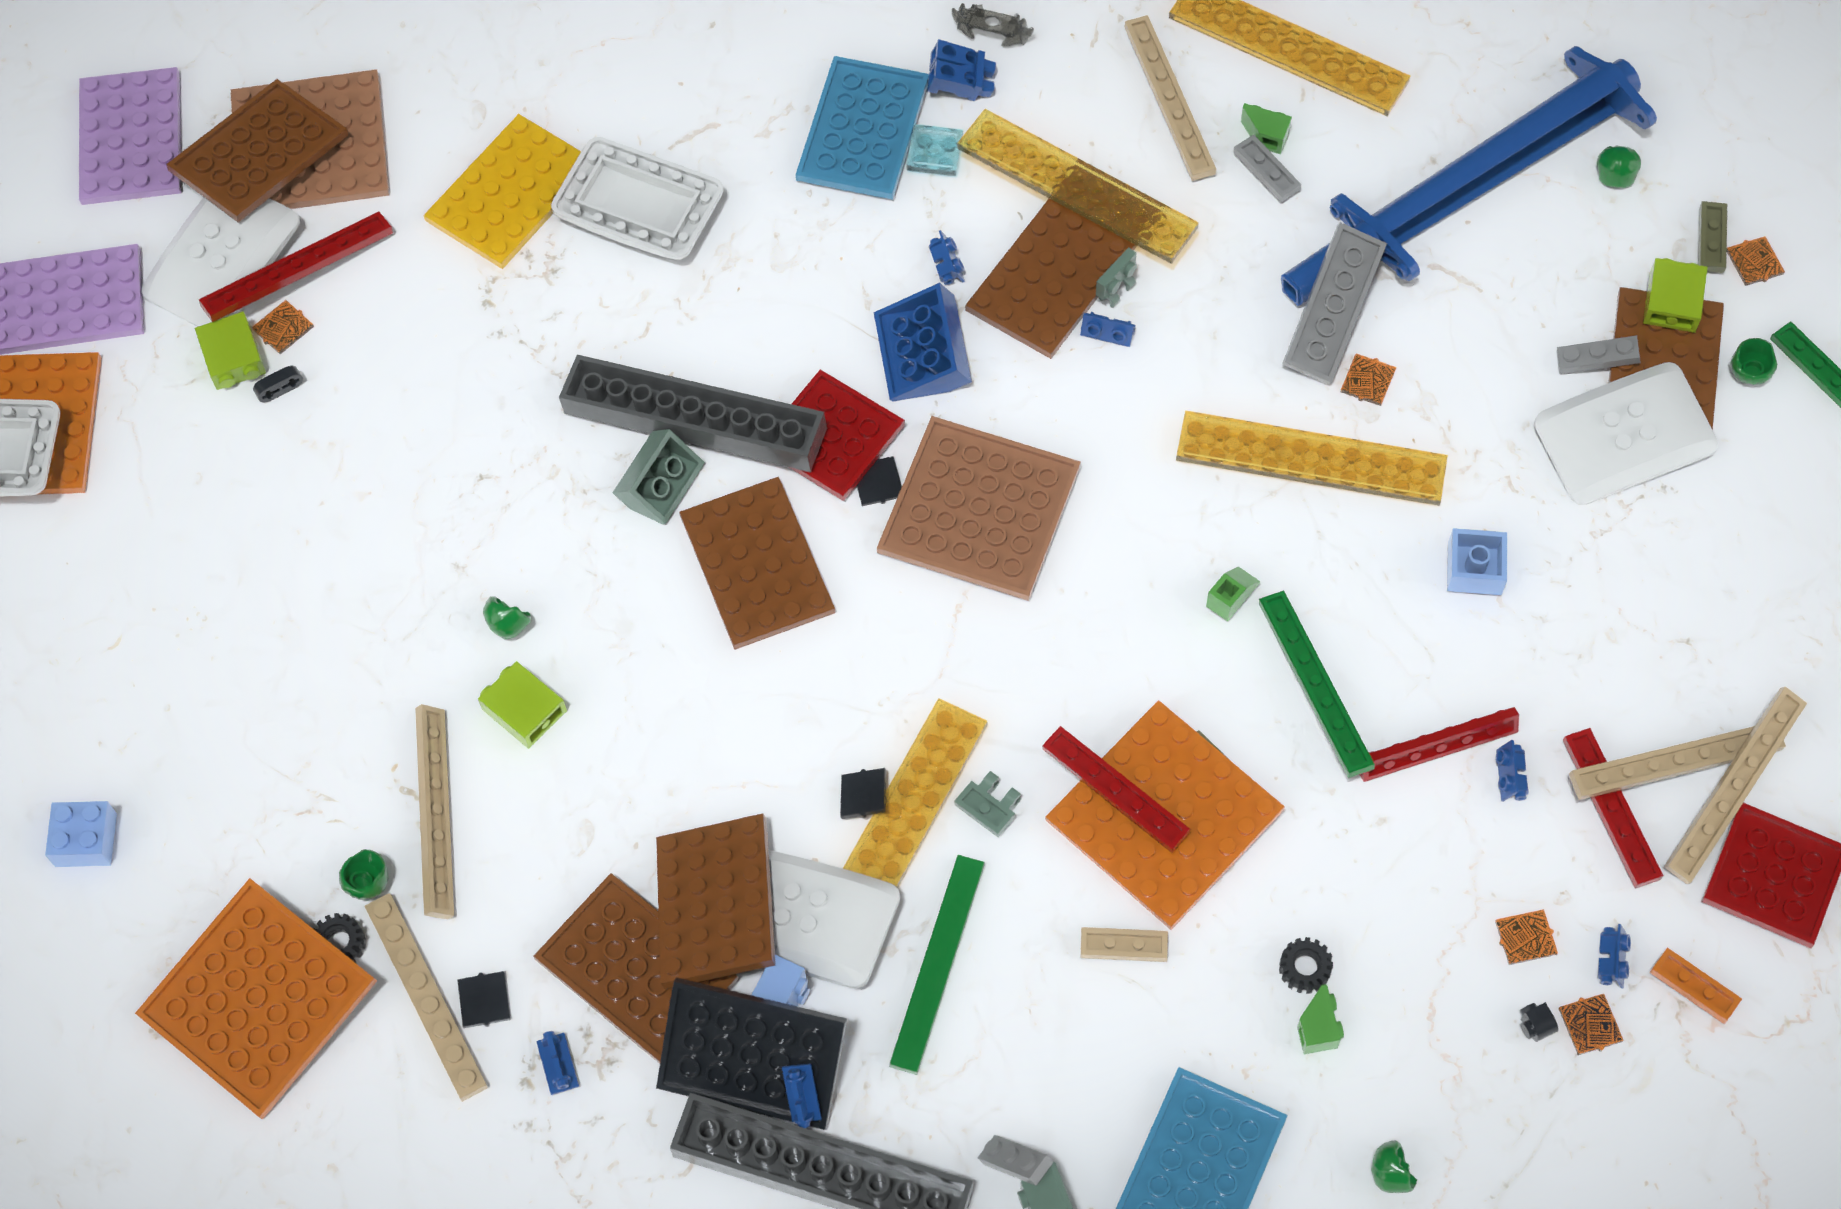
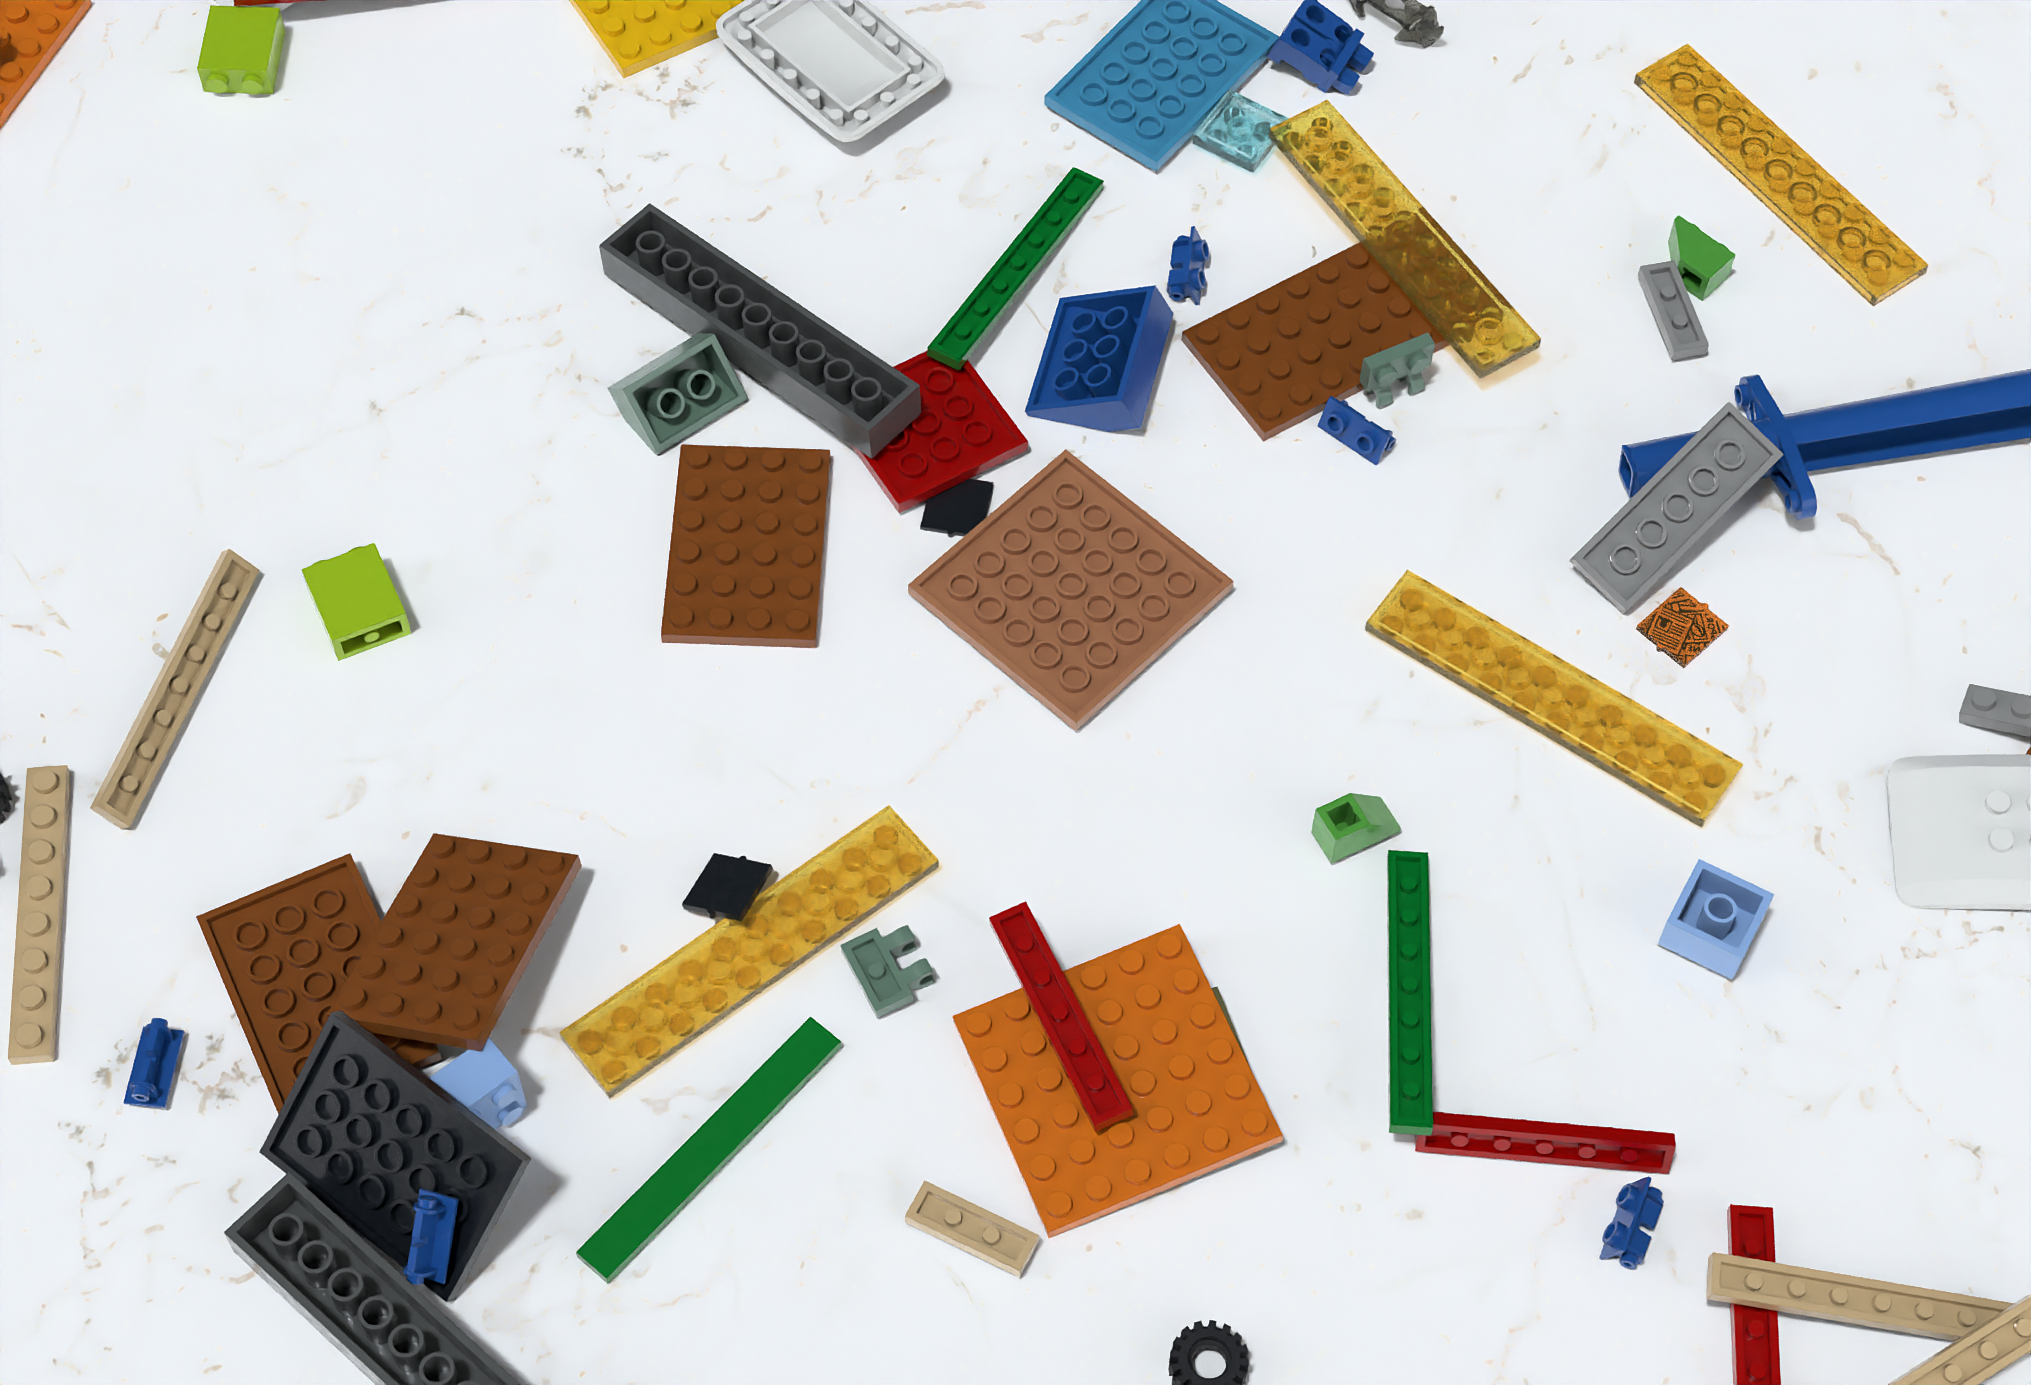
camera: 20 degrees right, 5 degrees down
(277, 384) = (276, 108): black beam -> none
(282, 327) = (322, 48): clear orange piece -> none
(364, 875) = (44, 729): green hair -> none
(483, 999) = (109, 947): black piece -> none
(505, 620) = (390, 487): green hair -> none
(829, 918) = (590, 1025): white wedge -> none
(836, 303) = (1015, 269): none -> green tile
(1170, 98) = (1584, 178): tan plate -> none

